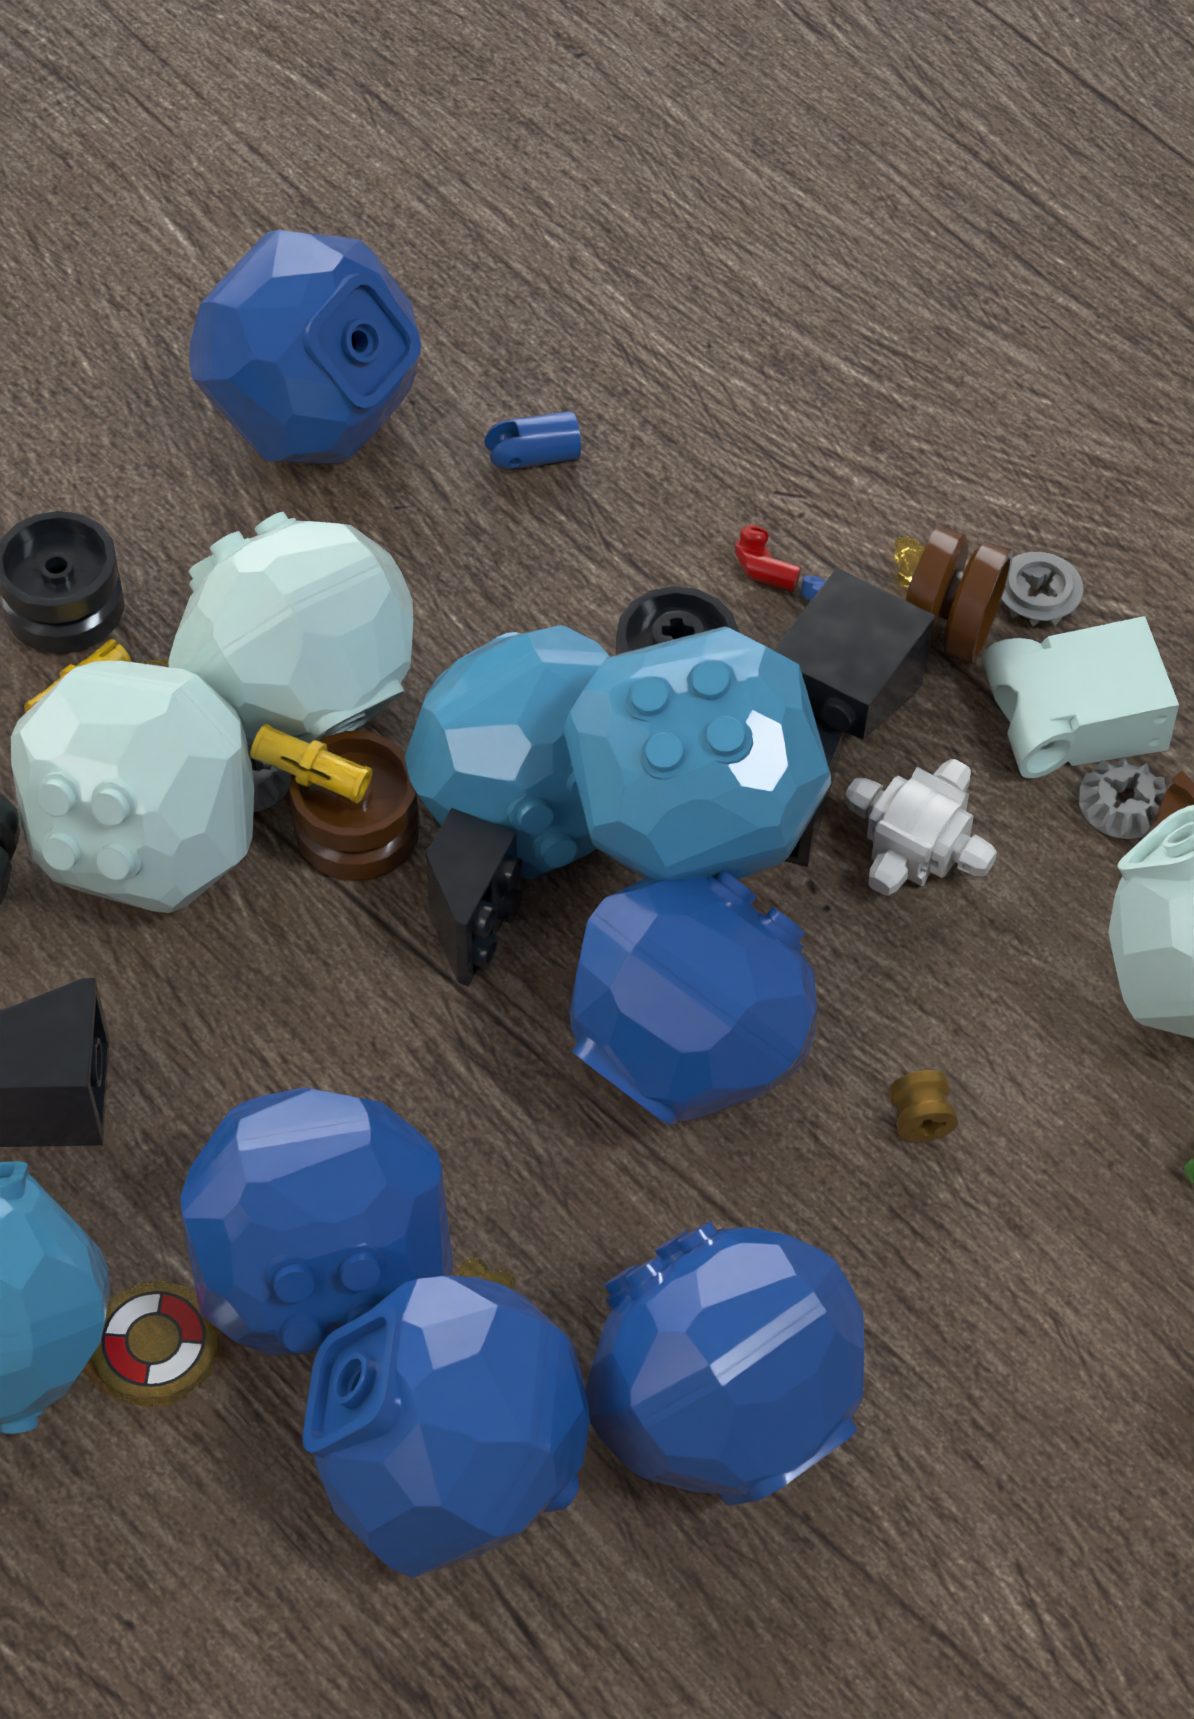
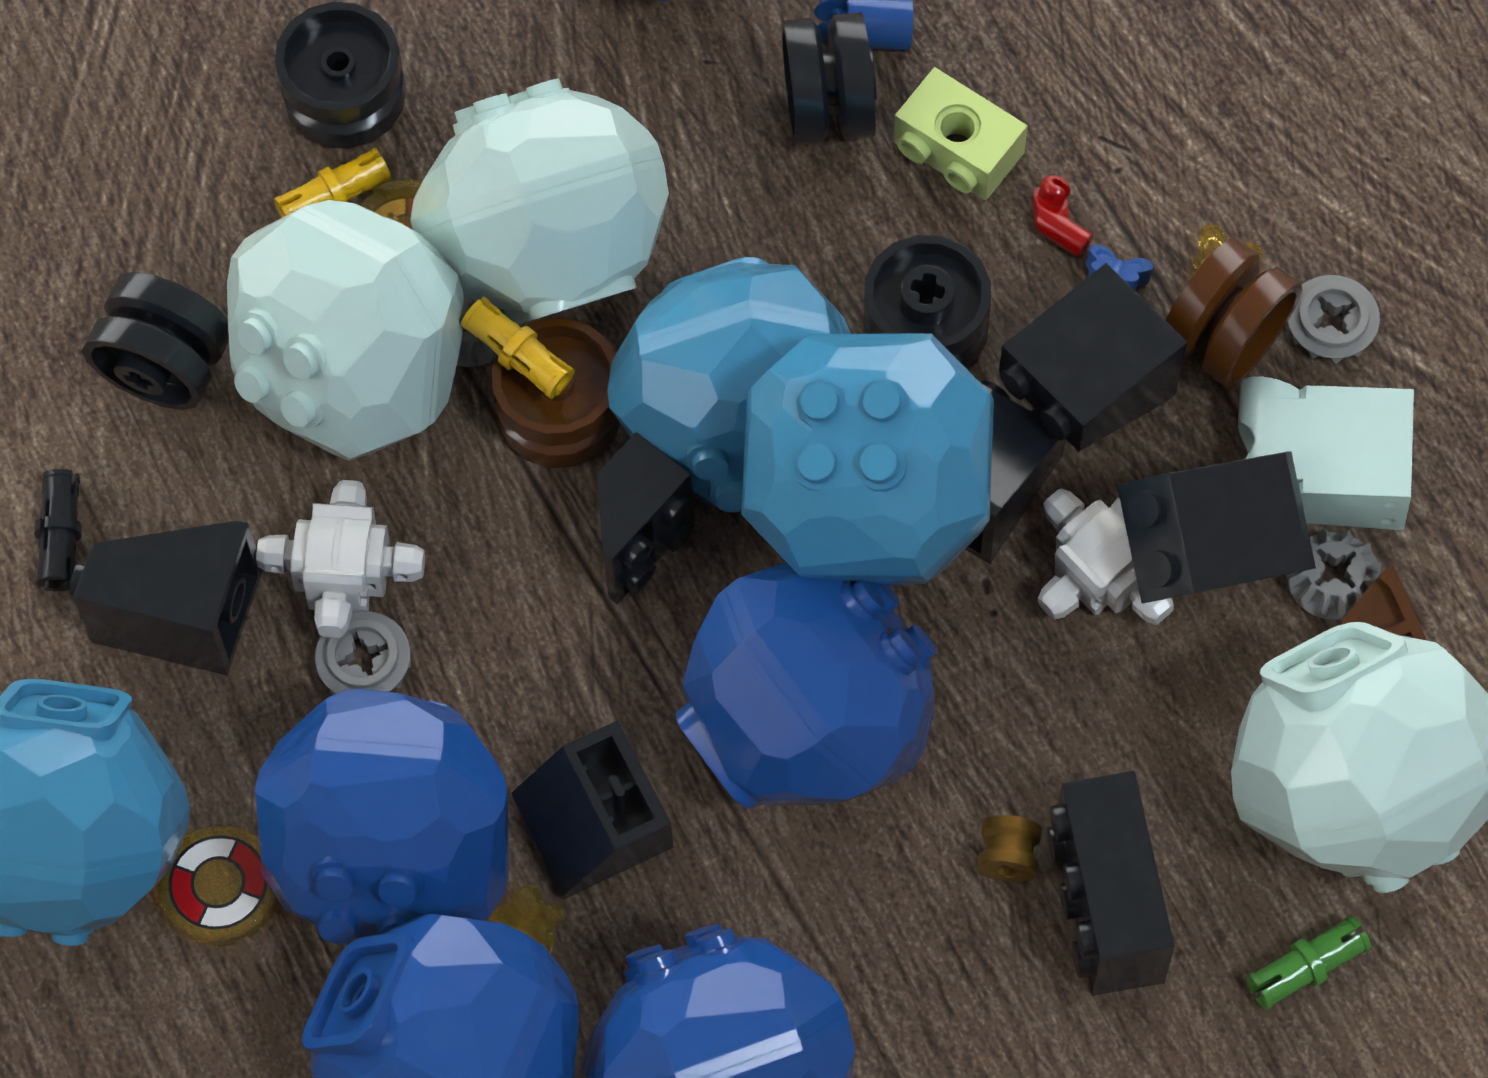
camera: 20 degrees right, 10 degrees up
(188, 1002) = (340, 558): none -> white piece
(239, 1067) = (376, 634): none -> light grey gear
(516, 1170) = (593, 811): none -> black slope
(521, 484) = (832, 78): none -> black wheel
(652, 510) = (947, 108): none -> yellowish green brick
(1019, 766) = (1216, 526): none -> black slope
(1037, 1108) = (1110, 884): none -> black brick

